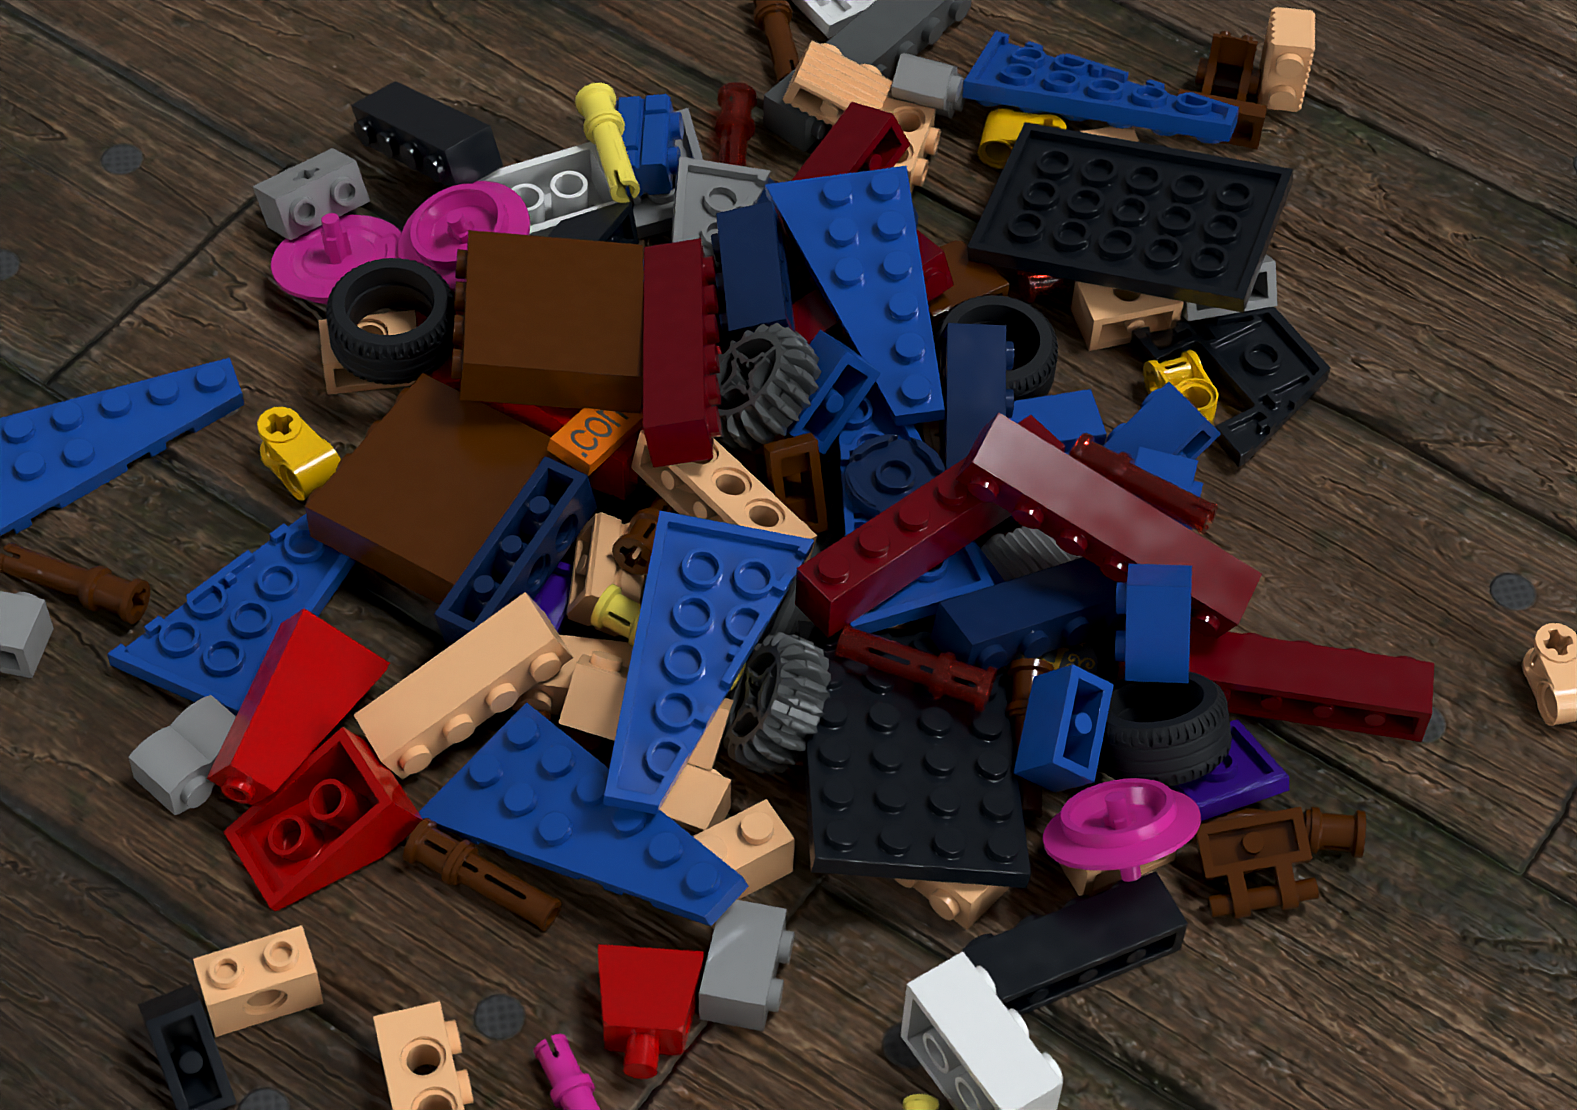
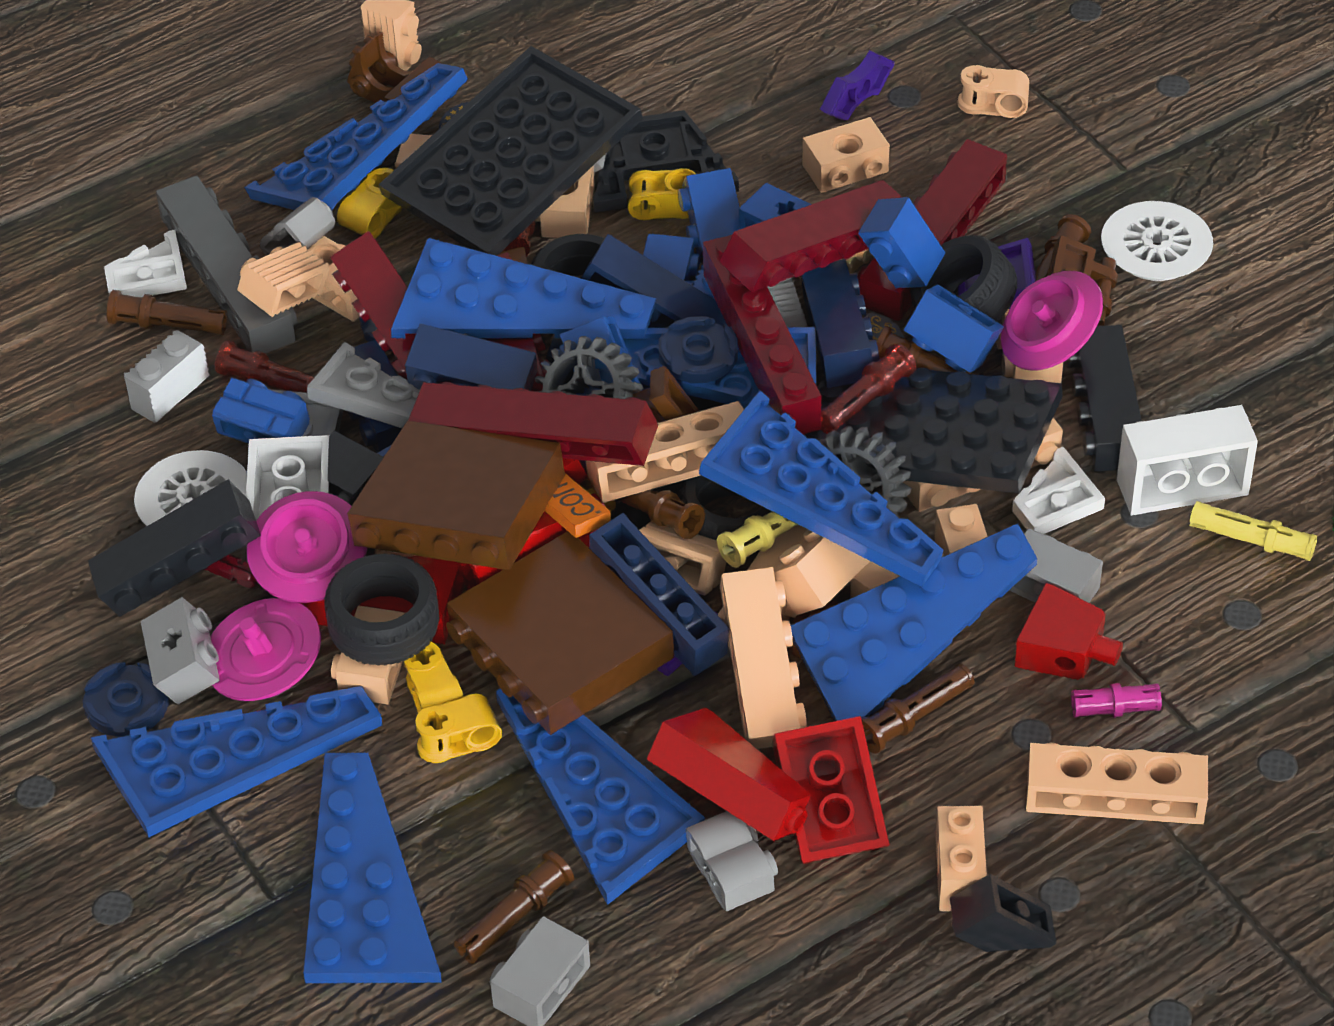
camera: 65 degrees left, 5 degrees down
(198, 274) = (219, 755): none -> blue wing
(236, 173) = (123, 699): none -> dark blue tile
(344, 415) = (431, 679): none -> yellow piece
(533, 118) = (161, 486): none -> white piece
(605, 129) = (251, 422): light yellow pin -> none
(682, 57) = (166, 375): none -> light grey brick
(880, 936) = (1057, 496): none -> white wing
(1146, 486) = (806, 196): clear red pin -> none
(1352, 551) = (845, 154): none -> light nougat brick
(1414, 895) = (1181, 234): none -> white piece
(1451, 519) = (855, 87): none -> dark purple tile

